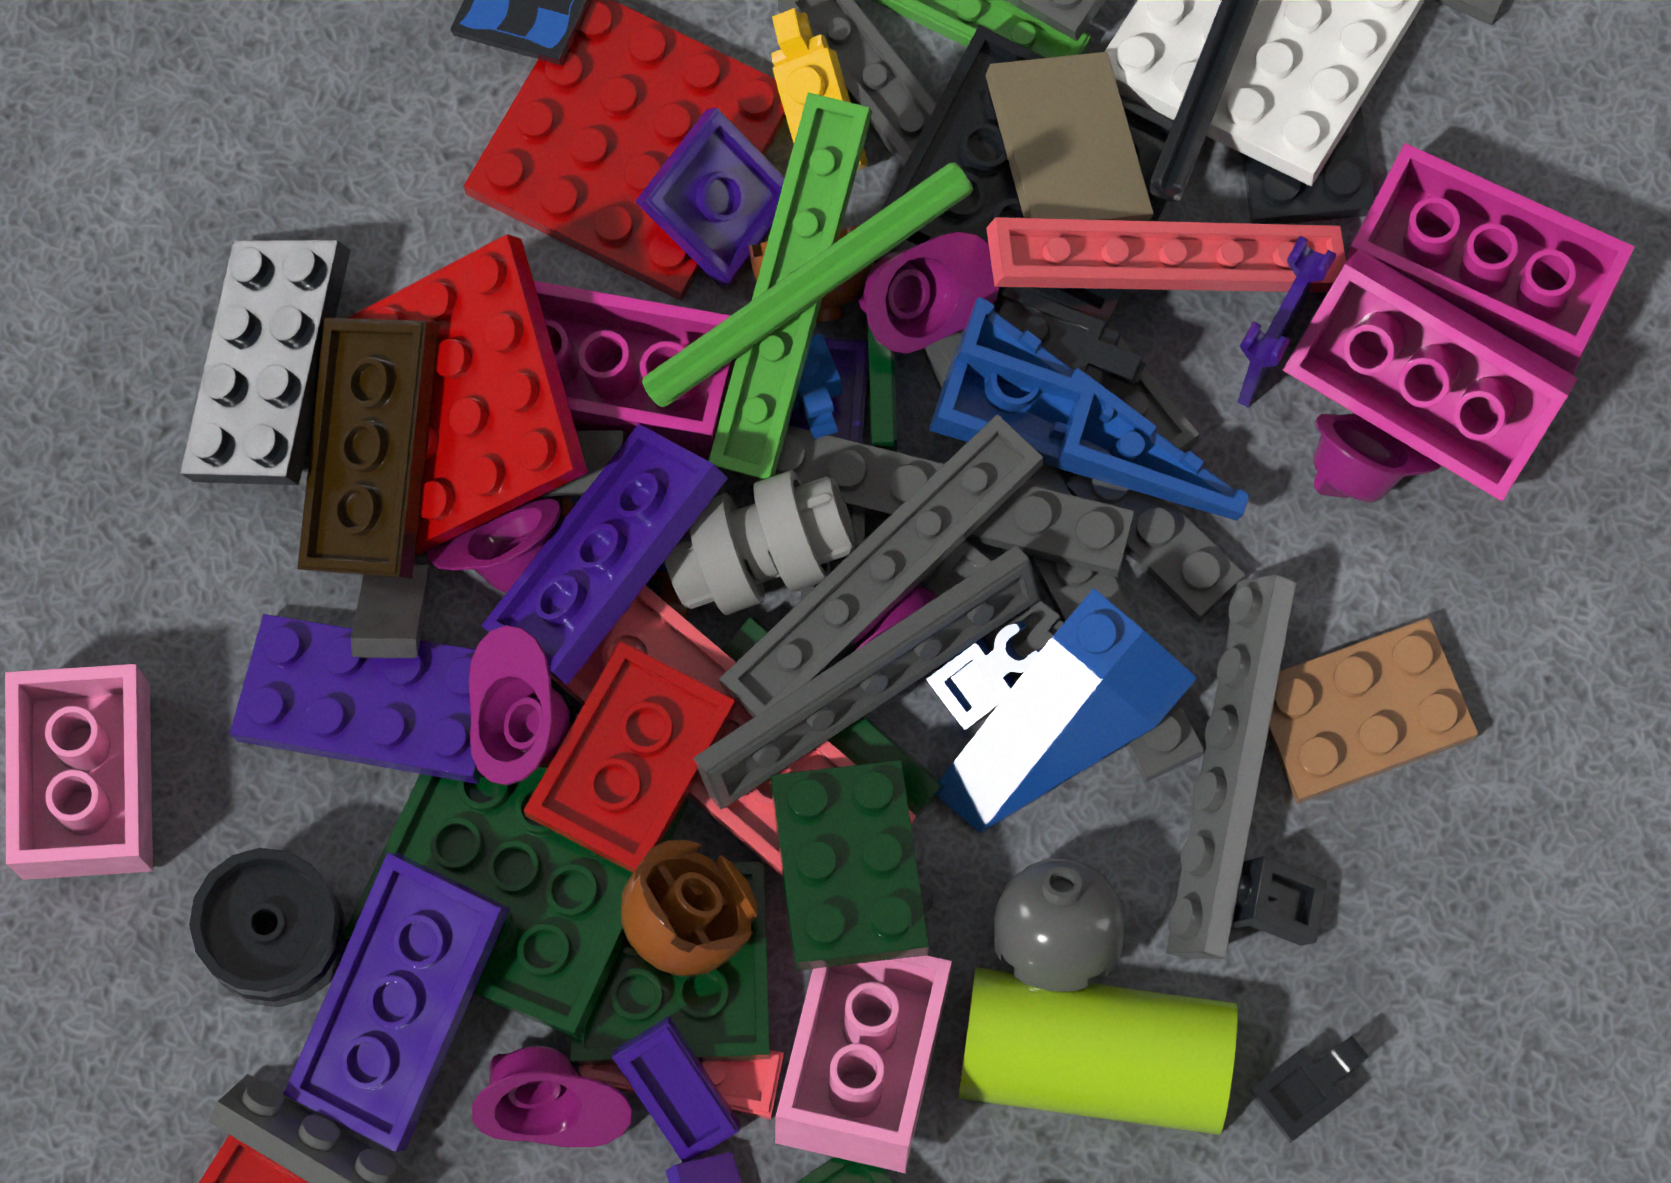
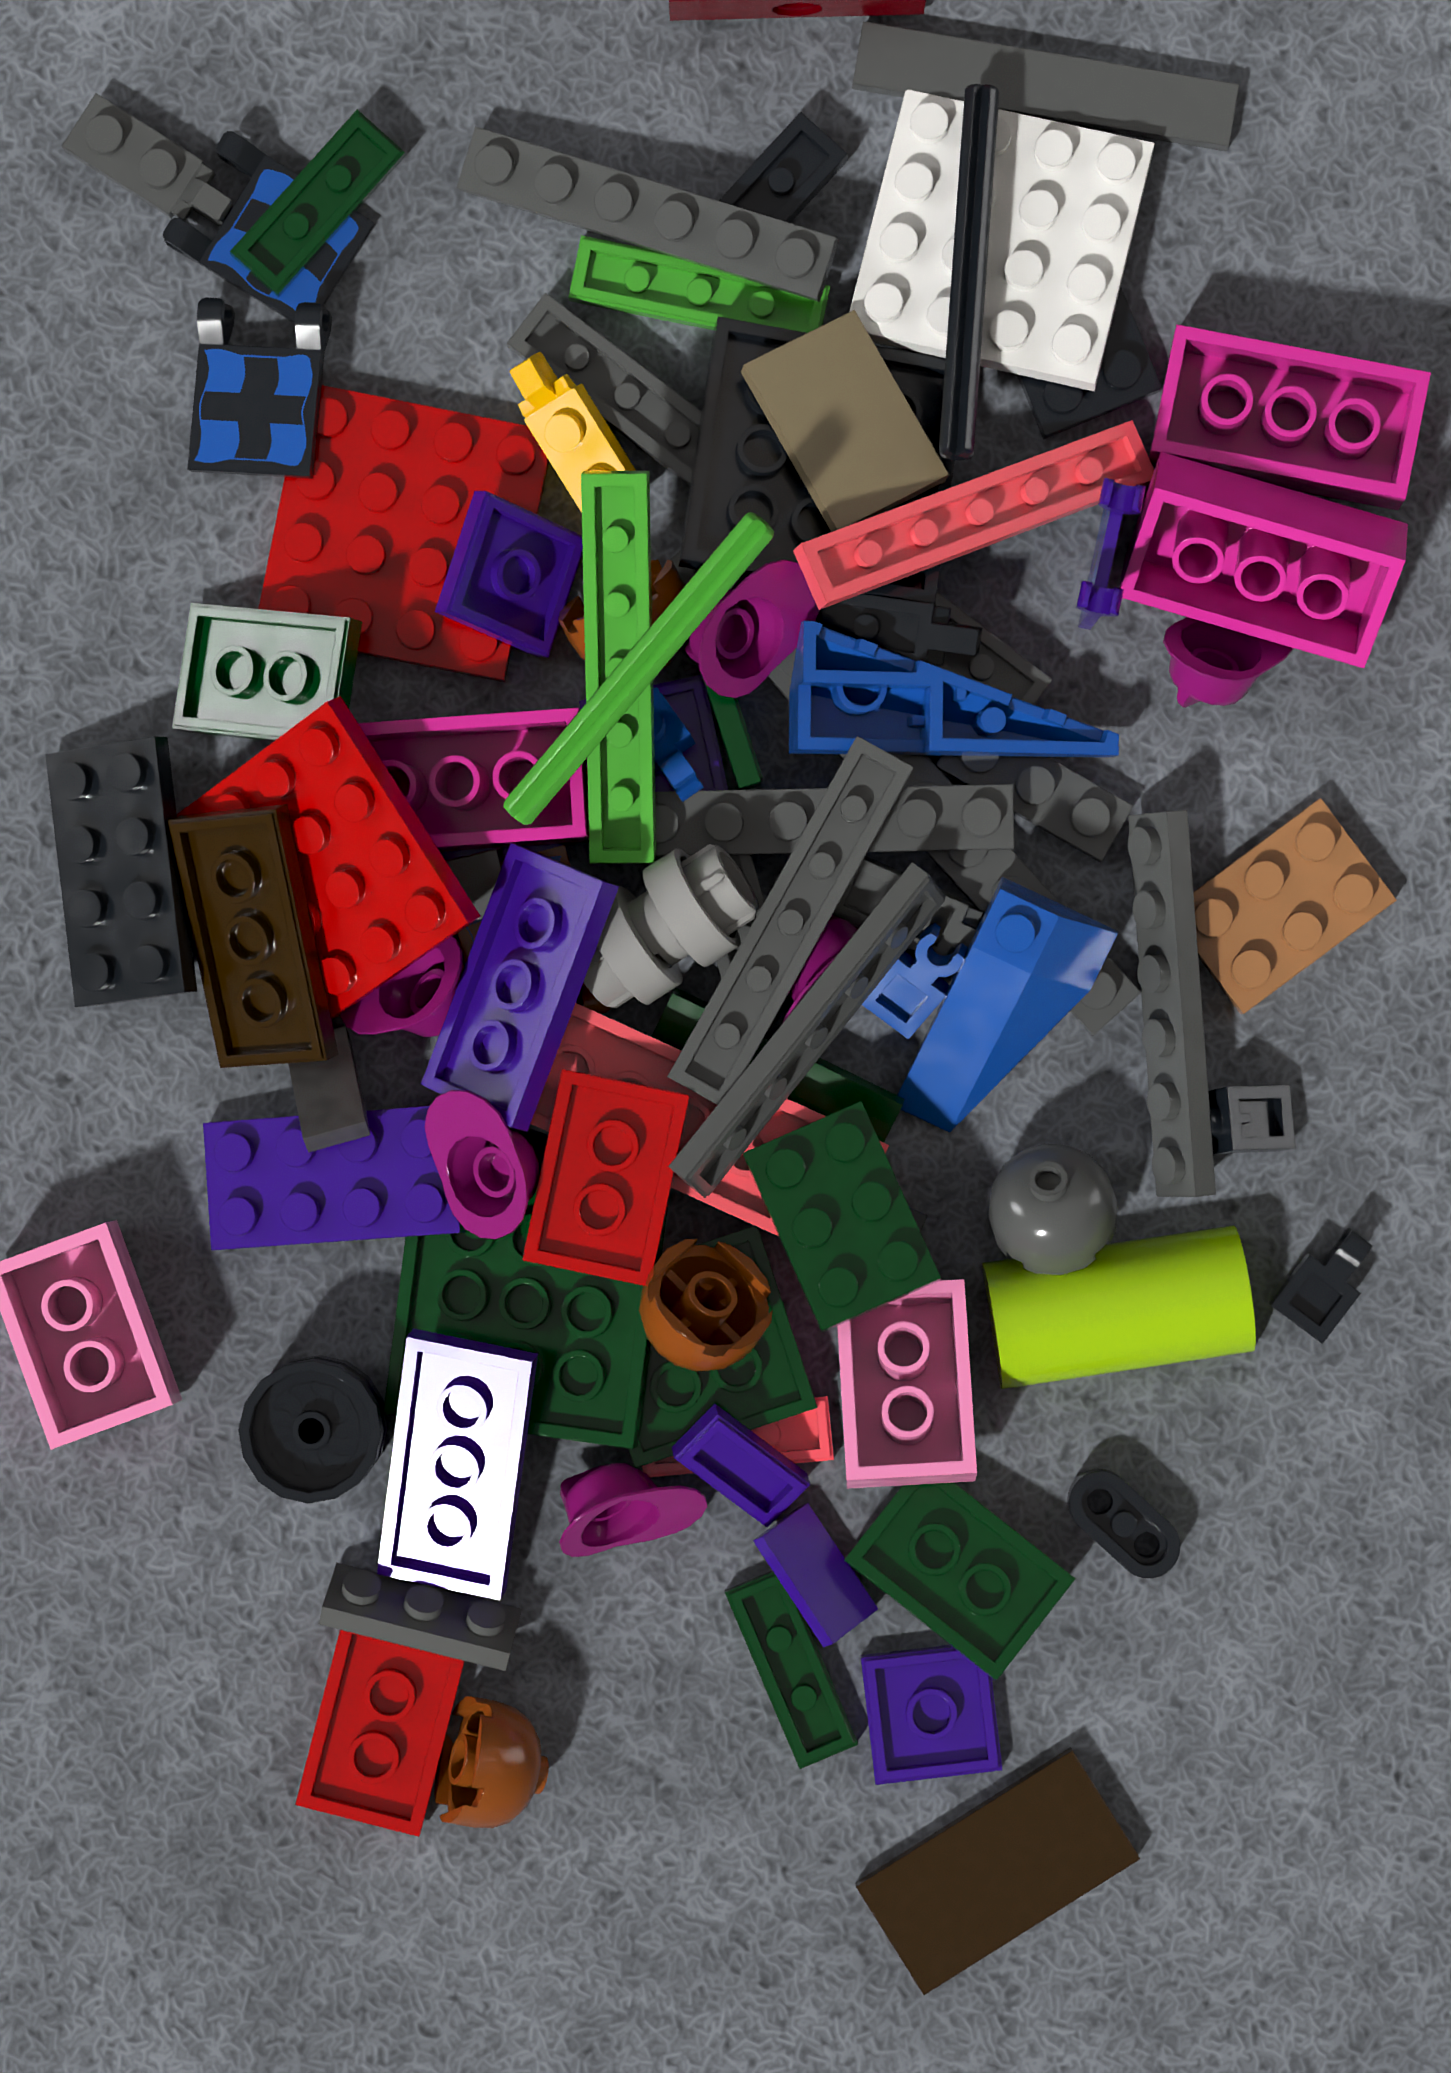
camera: 15 degrees left, 15 degrees up
(453, 207) = (261, 669): none -> tile

